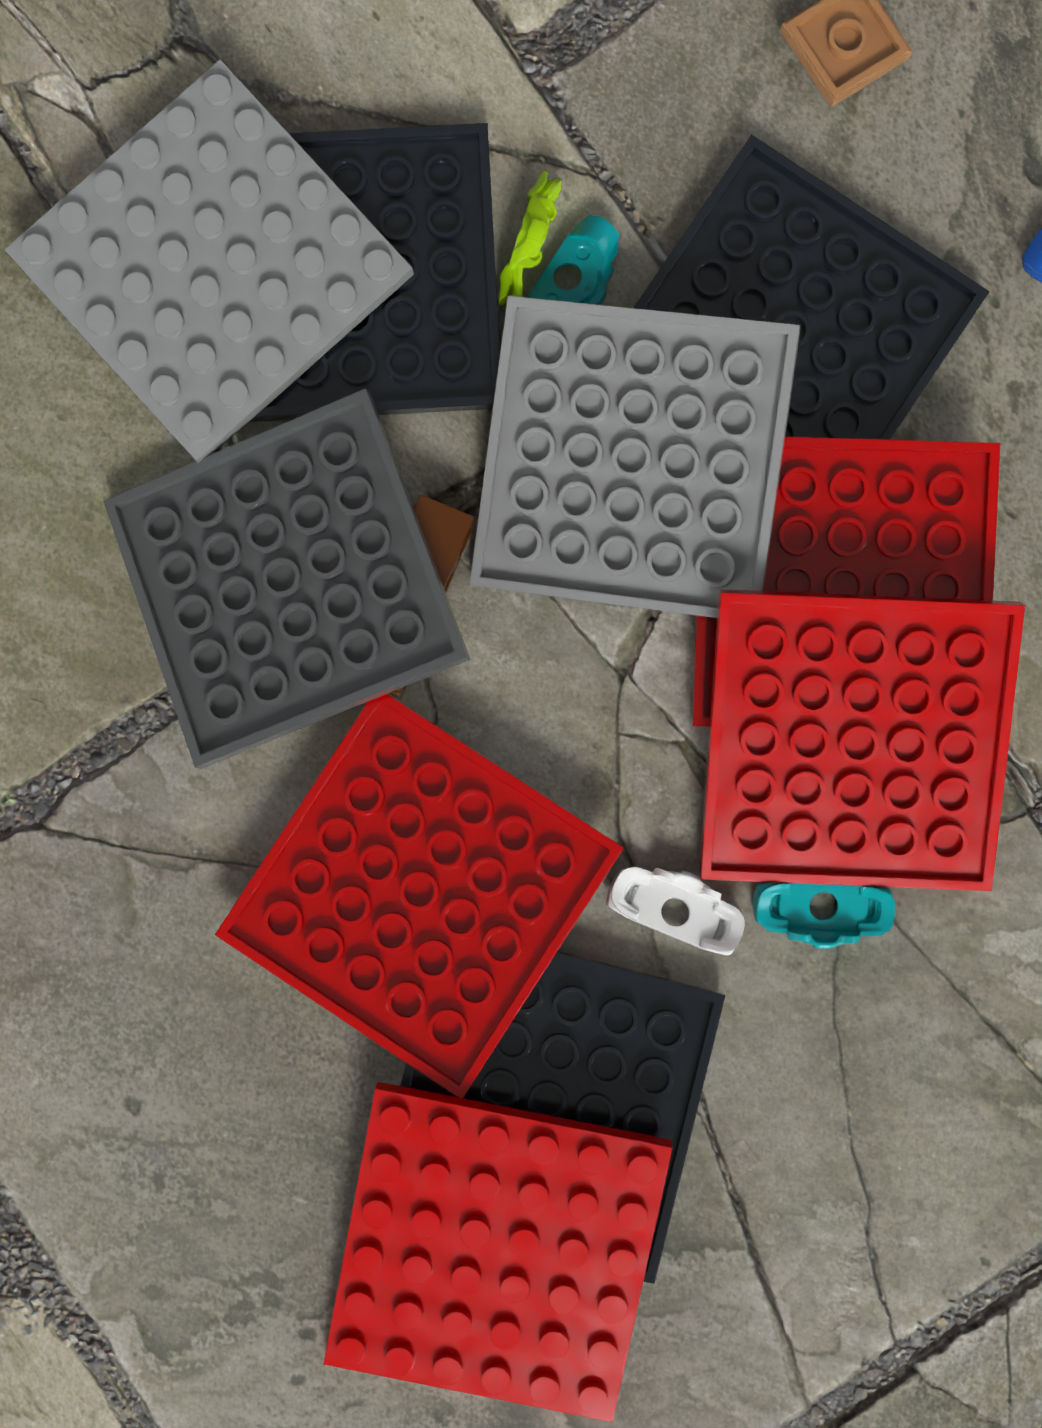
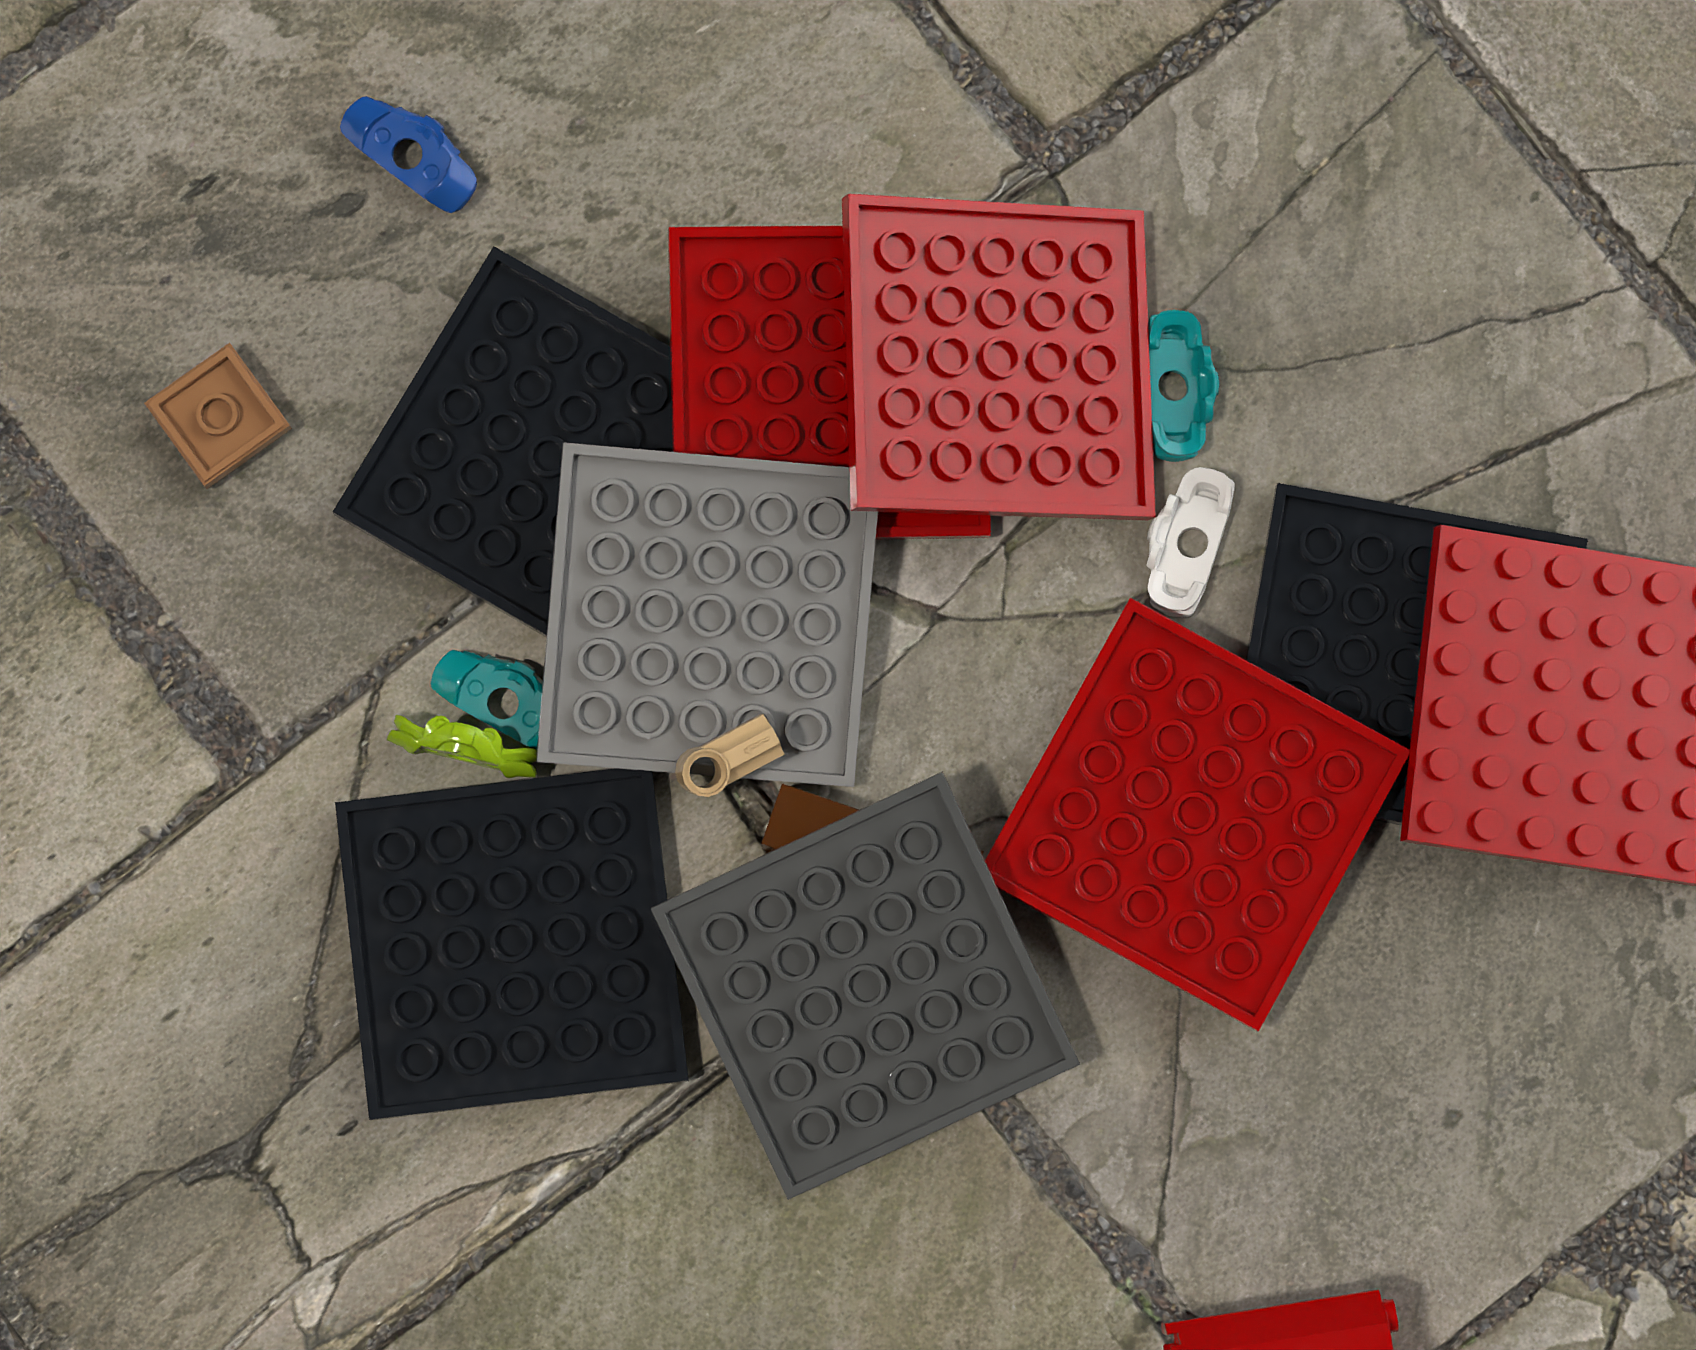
camera: 95 degrees left, 5 degrees down
(210, 261) = (512, 1098): light grey plate -> none
(501, 470) = (733, 755): none -> tan piece

